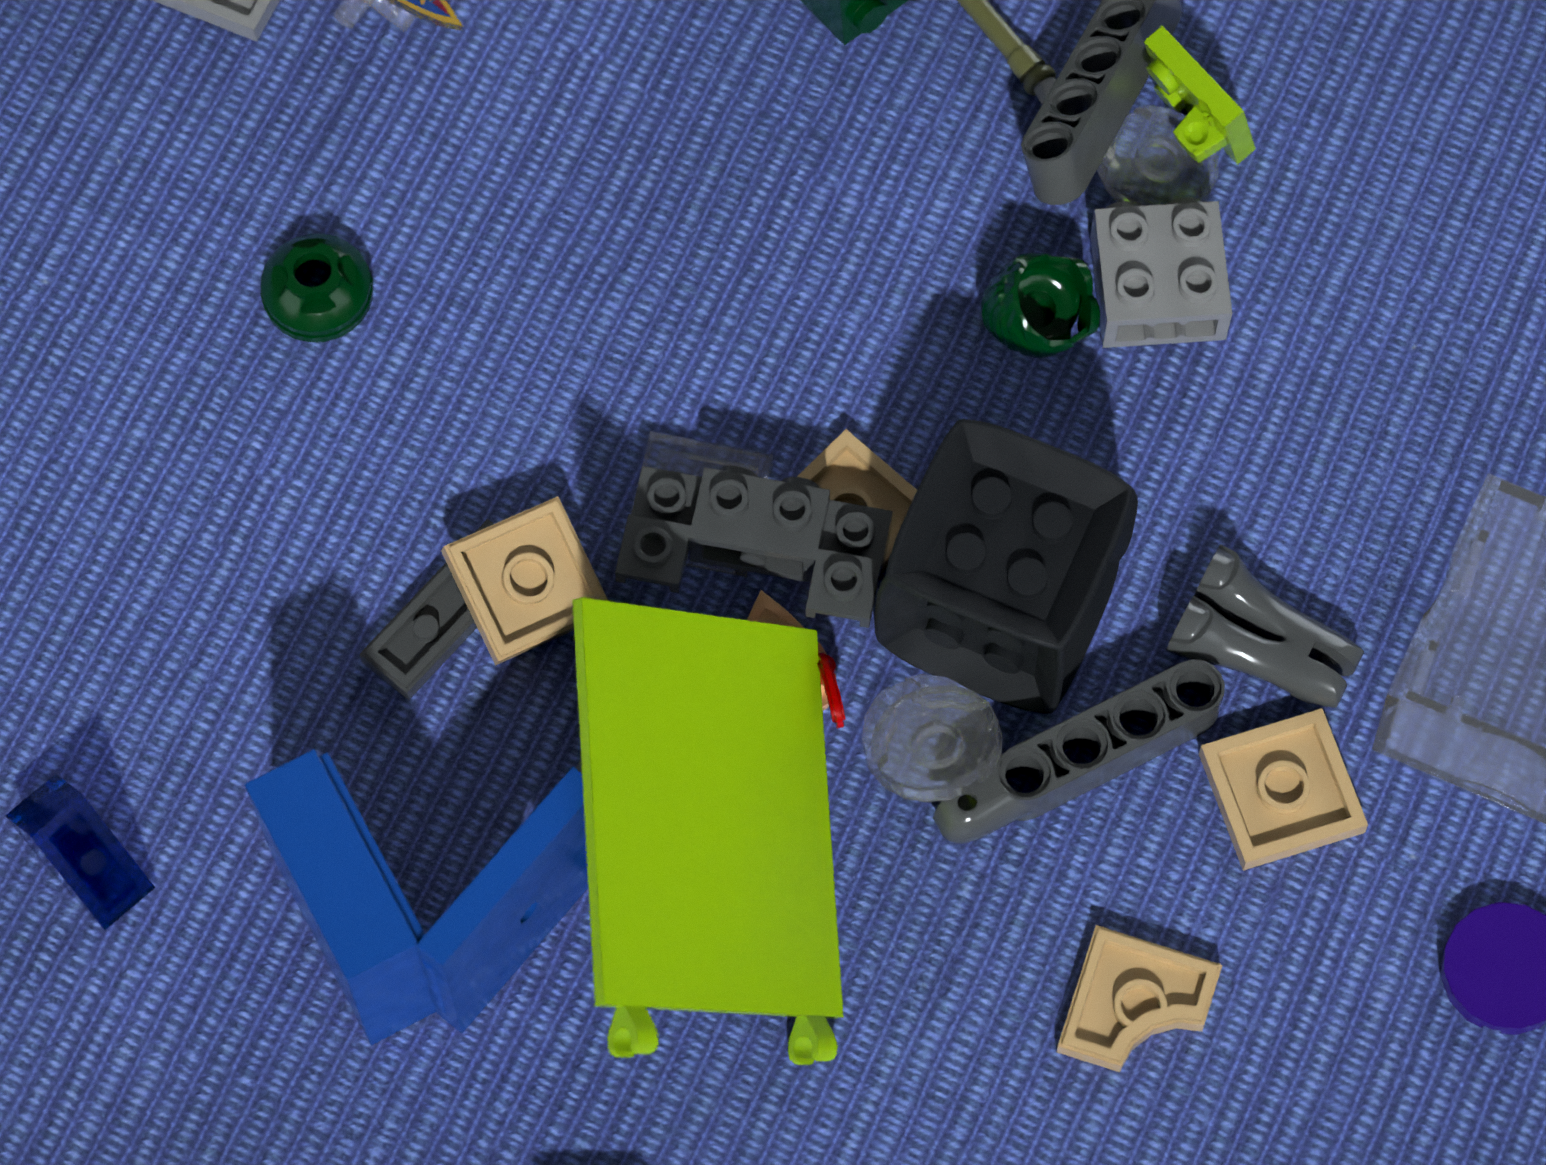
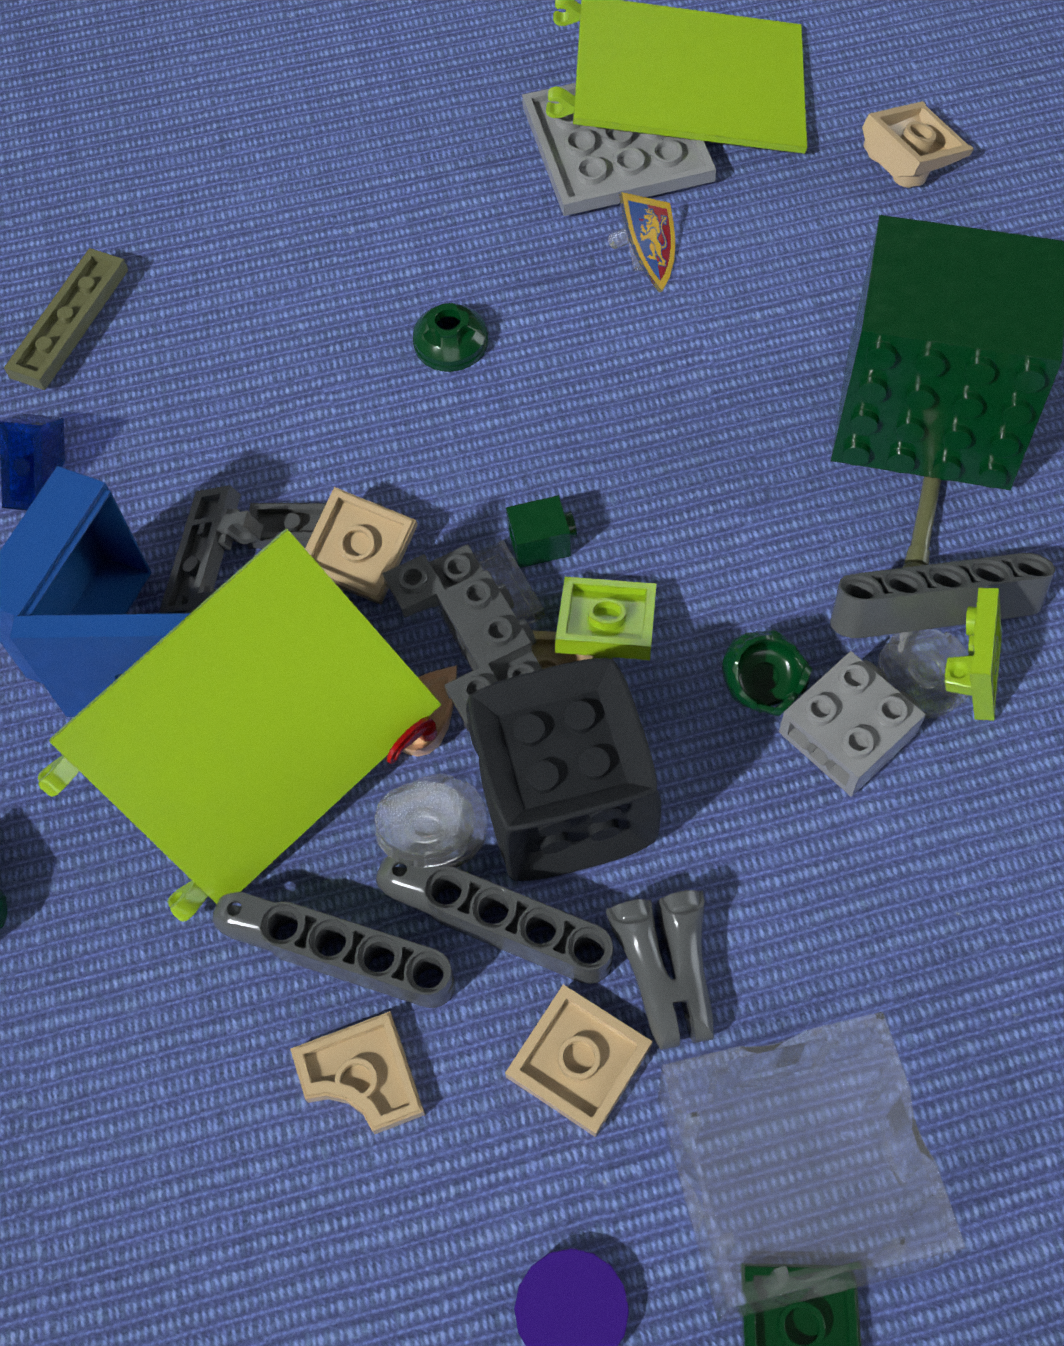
camera: 55 degrees right, 5 degrees down
(439, 802) = (208, 531): none -> dark grey hinge
(675, 386) = (540, 531): none -> dark green brick
(844, 402) = (606, 618): none -> lime hinge
(905, 988) = (260, 919): none -> dark grey piece

